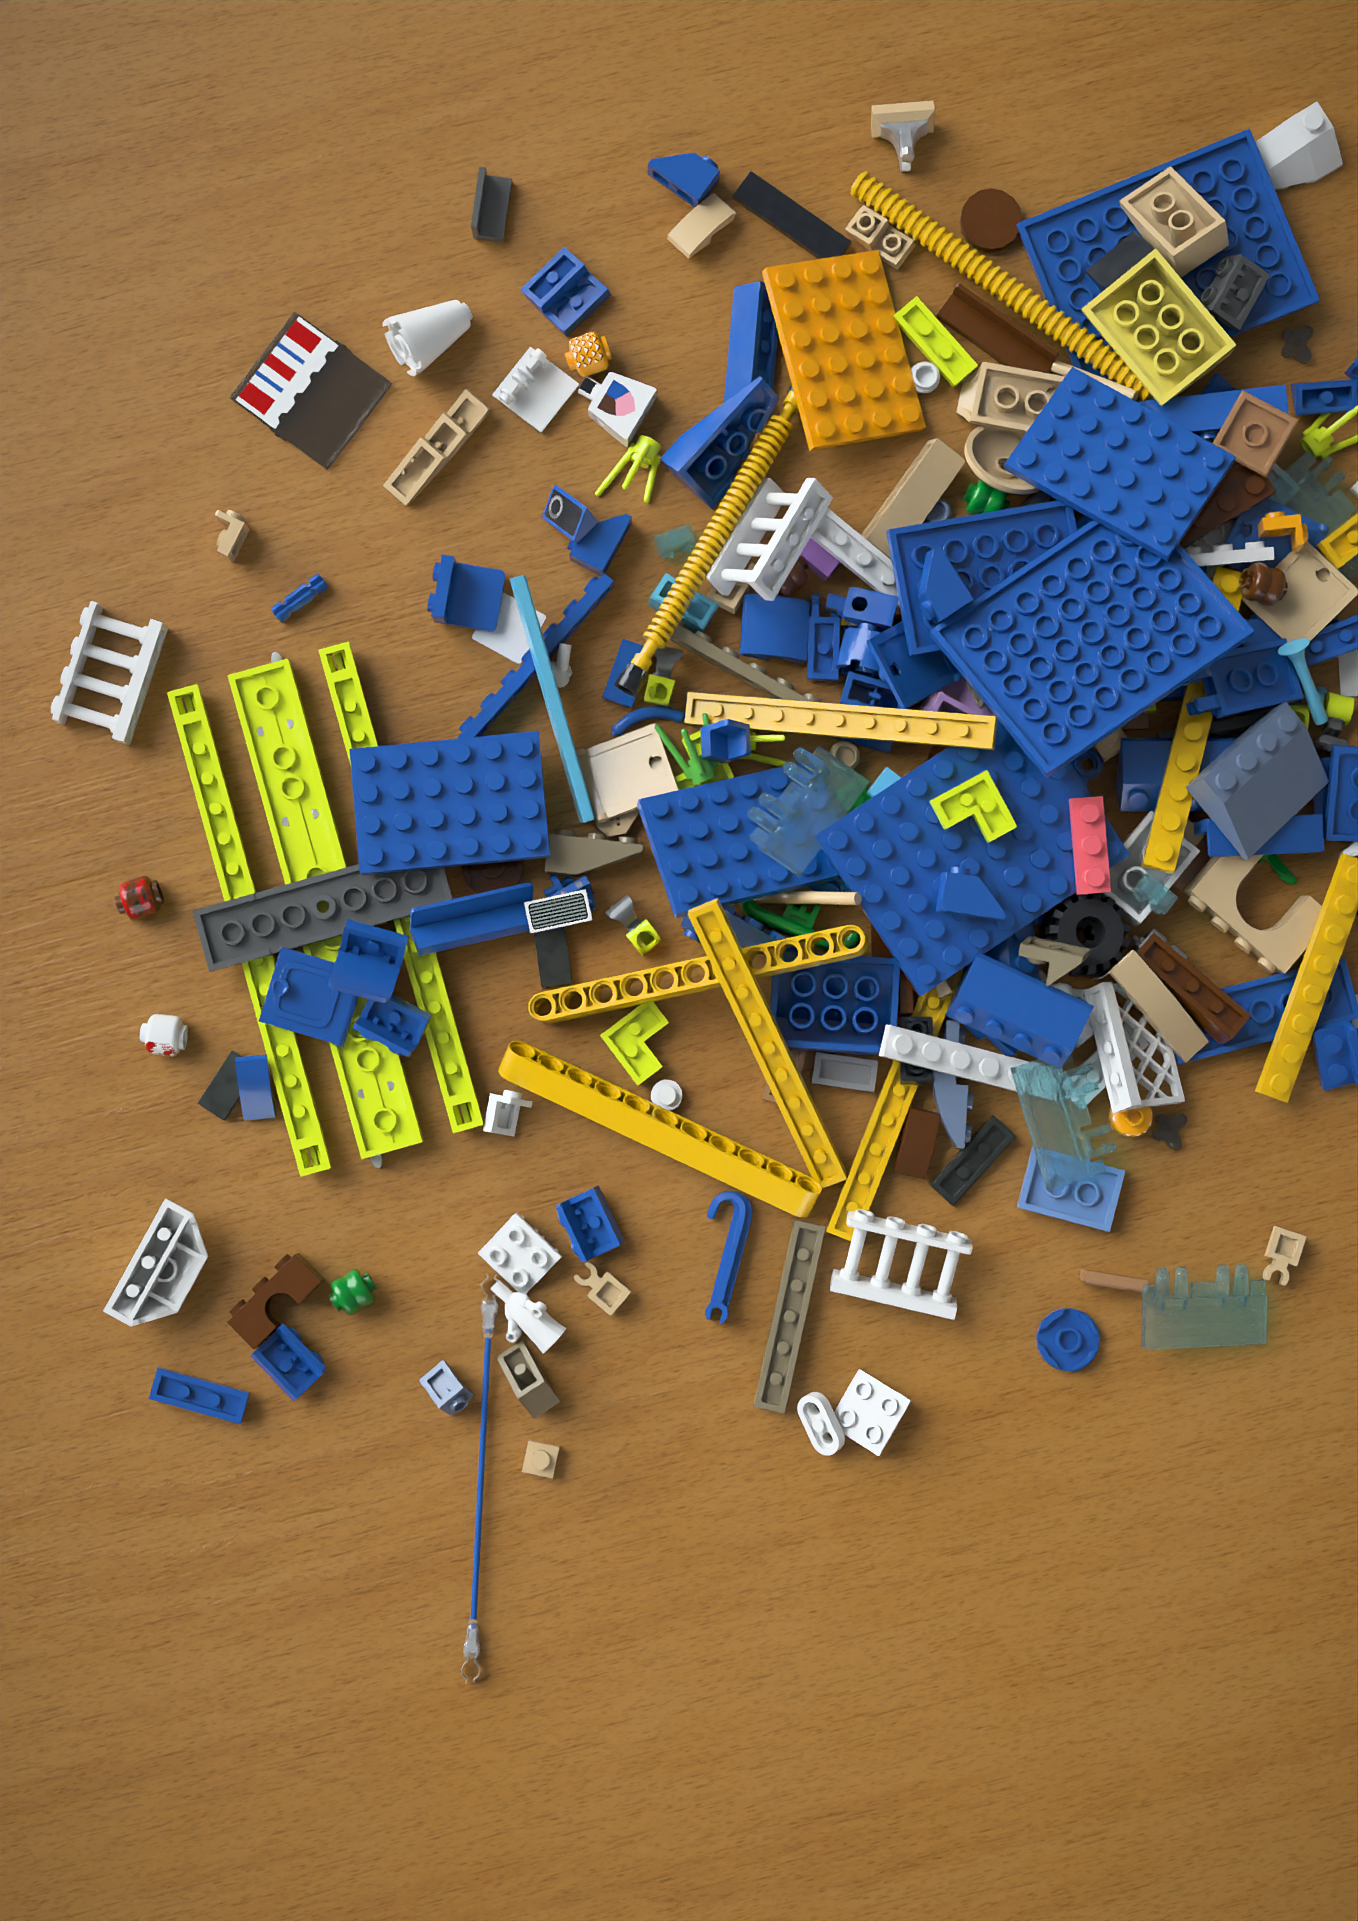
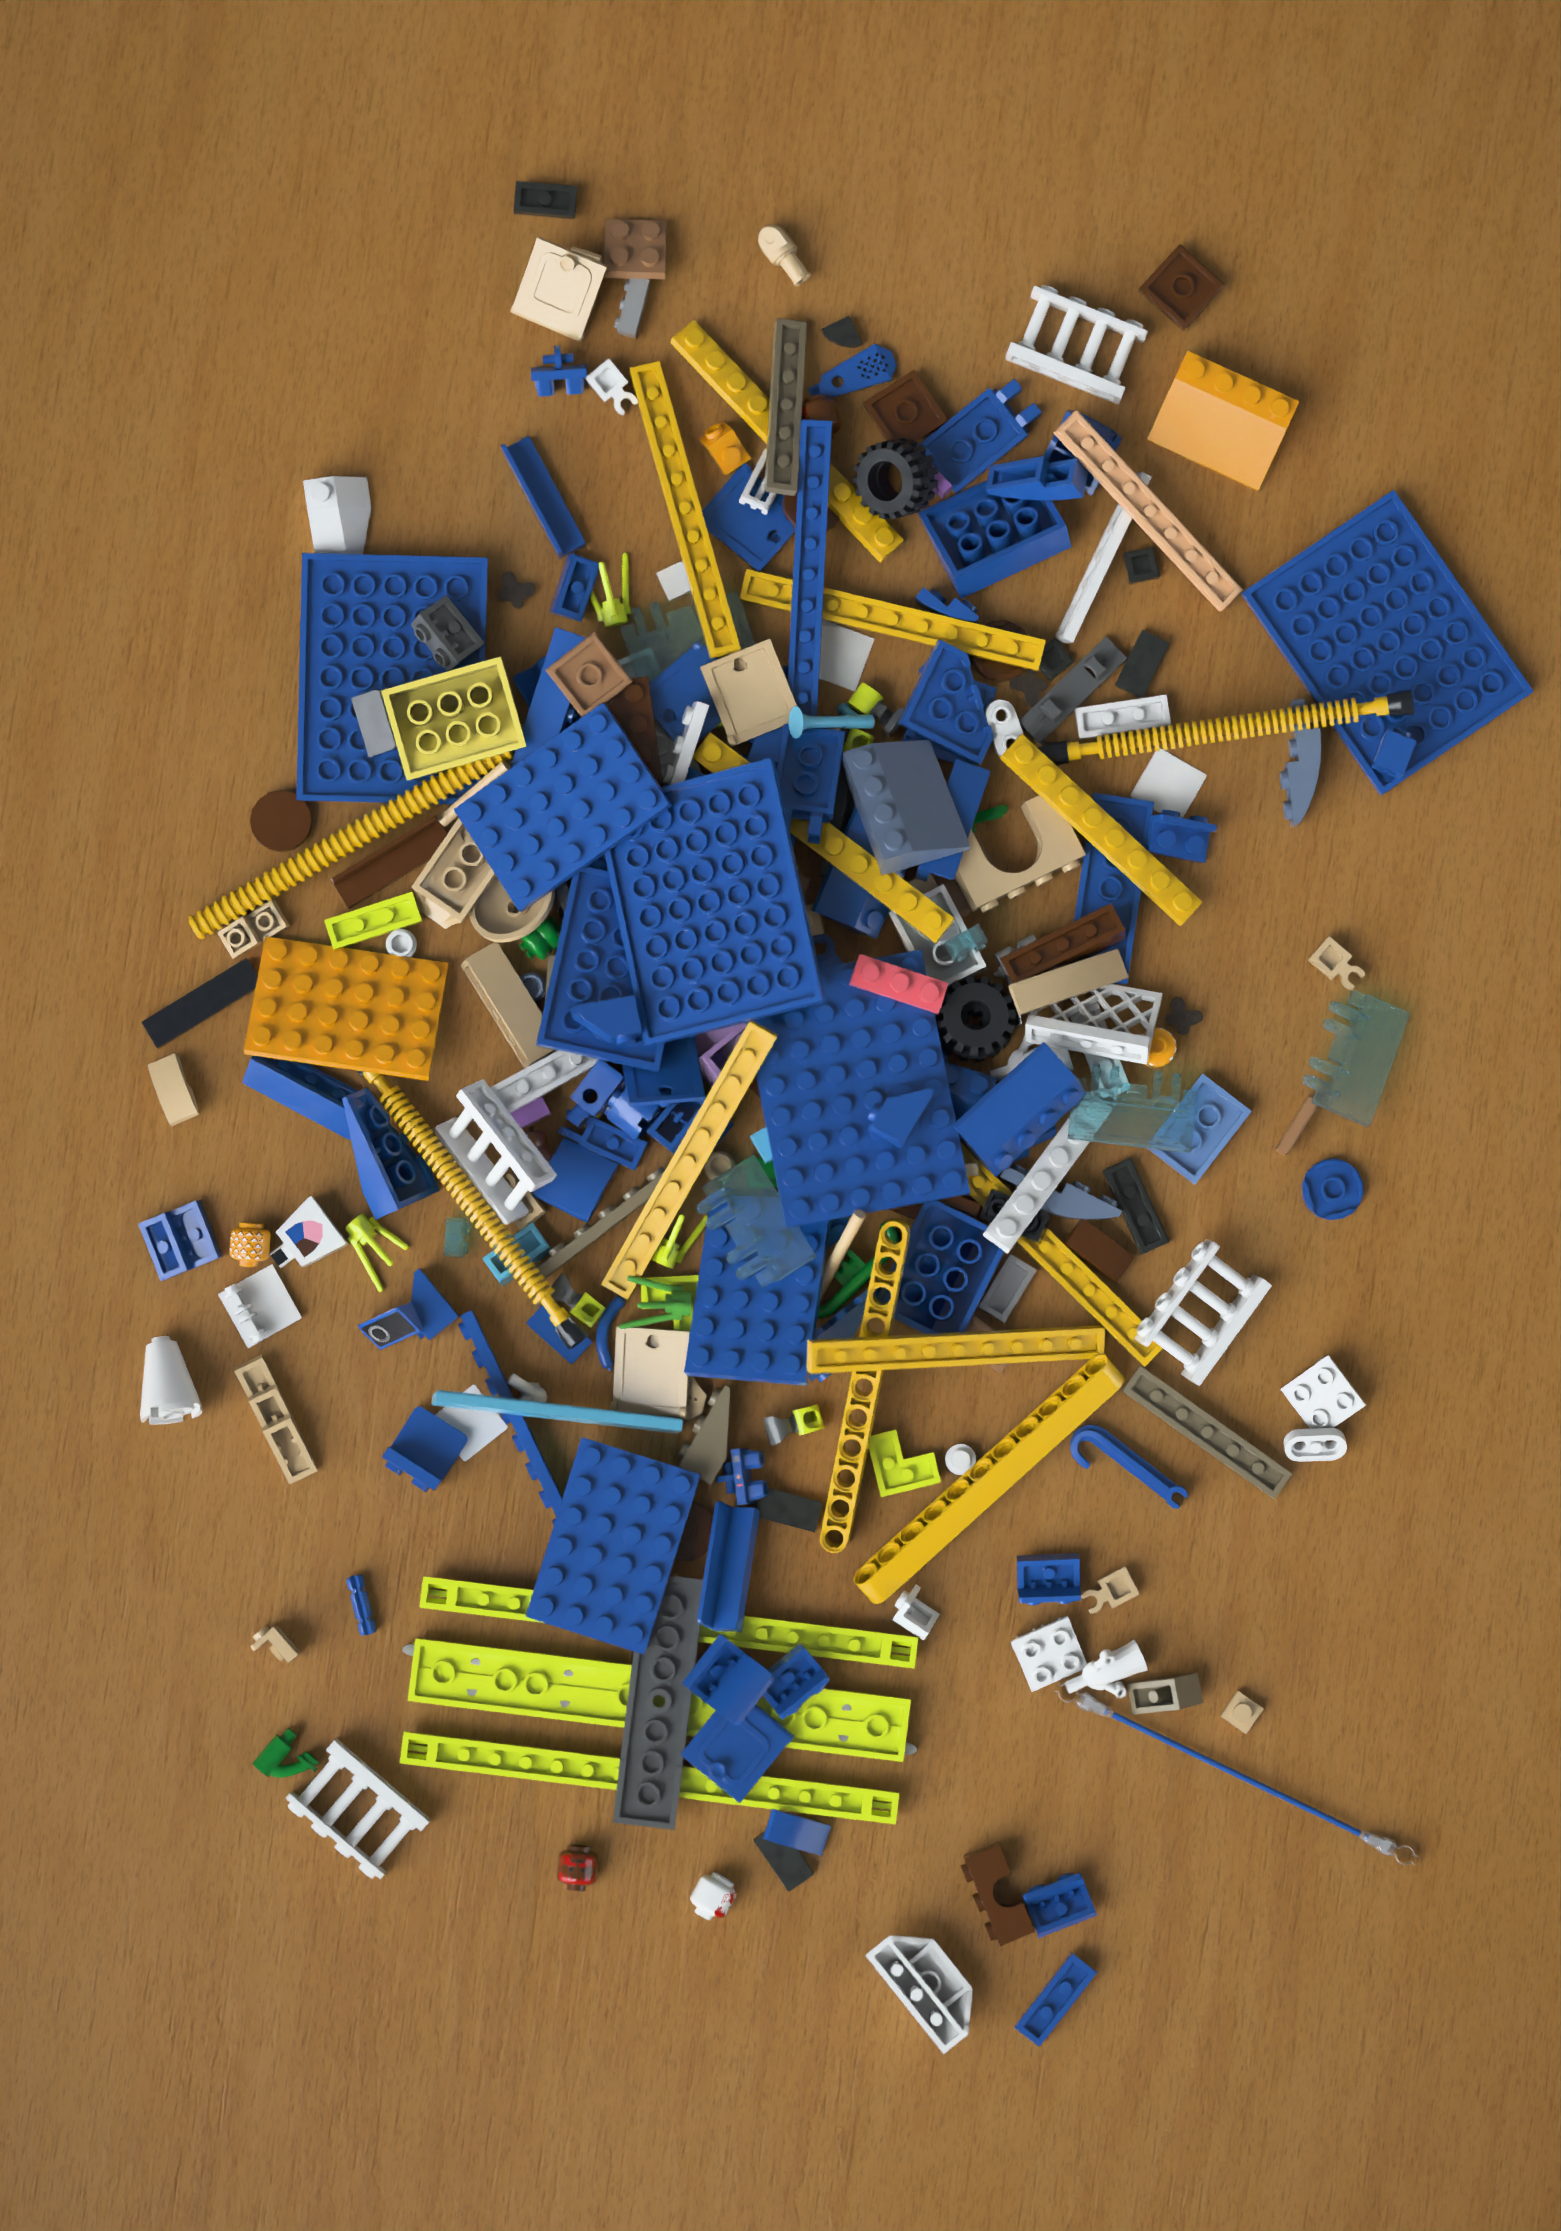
camera: 70 degrees left, 0 degrees up
(125, 574) = (274, 1753): none -> green plant
(310, 390) = (171, 1514): clear smoke piece -> none
(352, 1291) = (1019, 1820): green piece -> none
(446, 1388) = (1142, 1771): bracket -> none
(491, 207) = (72, 1275): dark grey panel -> none
(558, 911) = (753, 1488): sticker -> none
(686, 176) = (121, 1083): blue slope -> none
(725, 741) = (663, 1270): blue panel -> none
(903, 126) = (161, 865): piece -> none
(976, 798) = (815, 1067): neon yellow plate -> none
(1060, 956) = (986, 1053): dark tan slope -> none
(1176, 221) = (360, 658): tan slope -> none
(1263, 584) = (727, 724): reddish brown piece -> none
(1280, 525) = (678, 686): light orange bracket -> none

